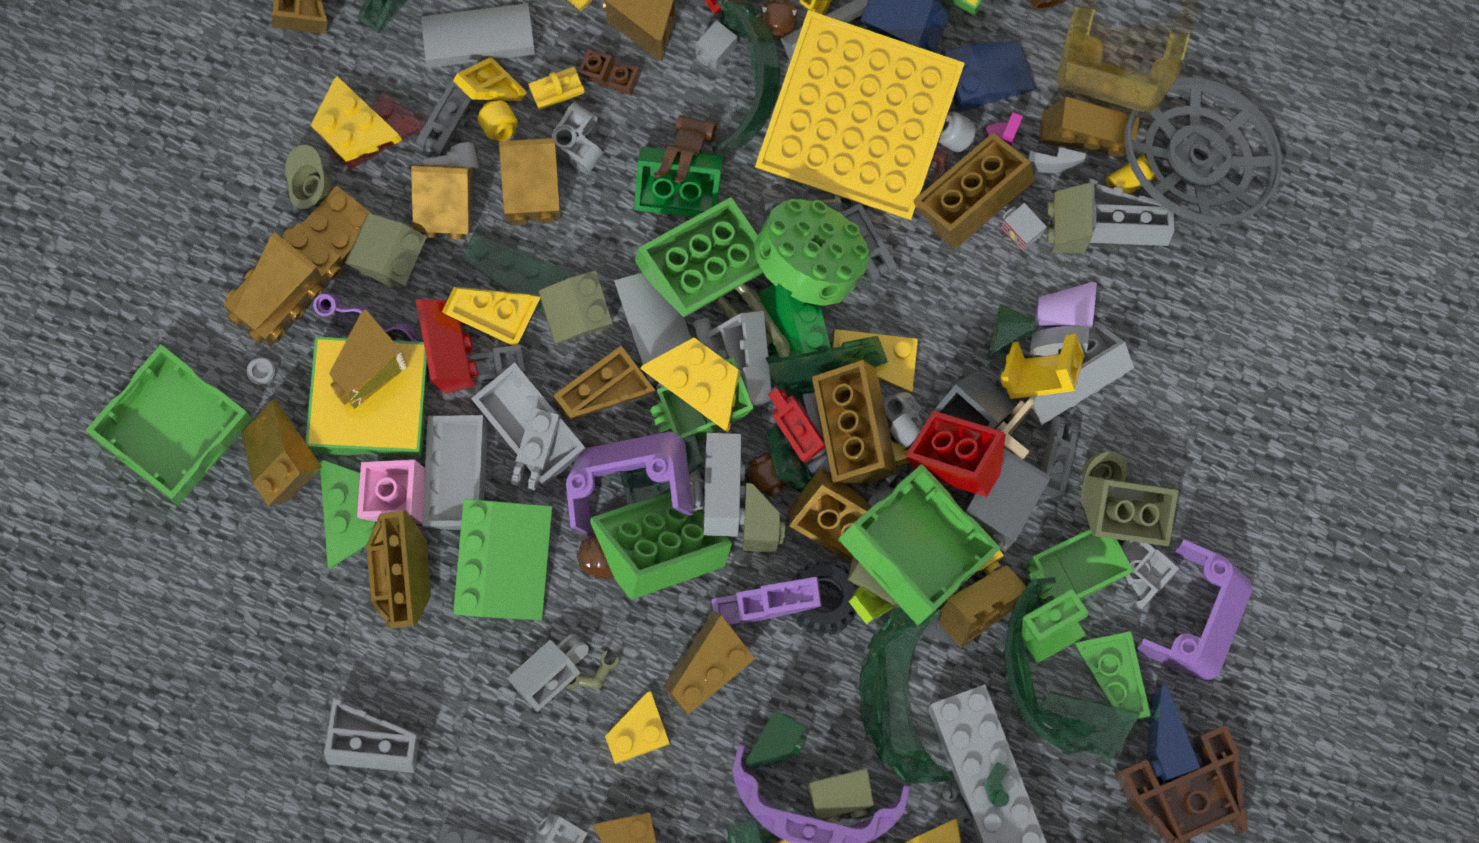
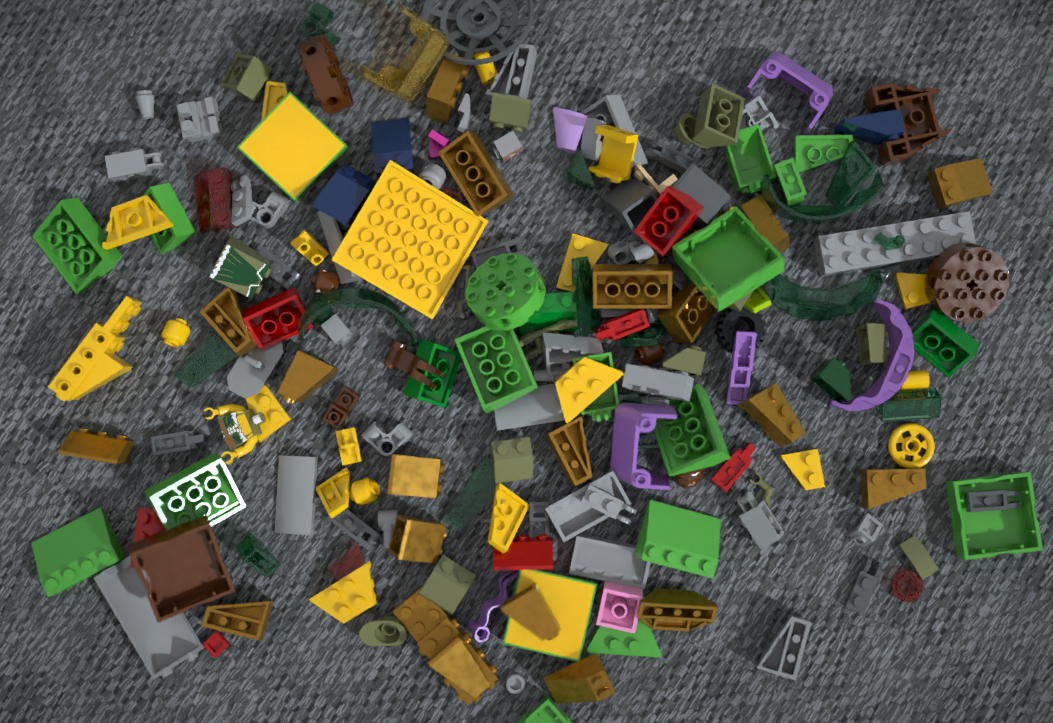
camera: 75 degrees left, 10 degrees up
(620, 624) = (733, 467): none -> red hinge

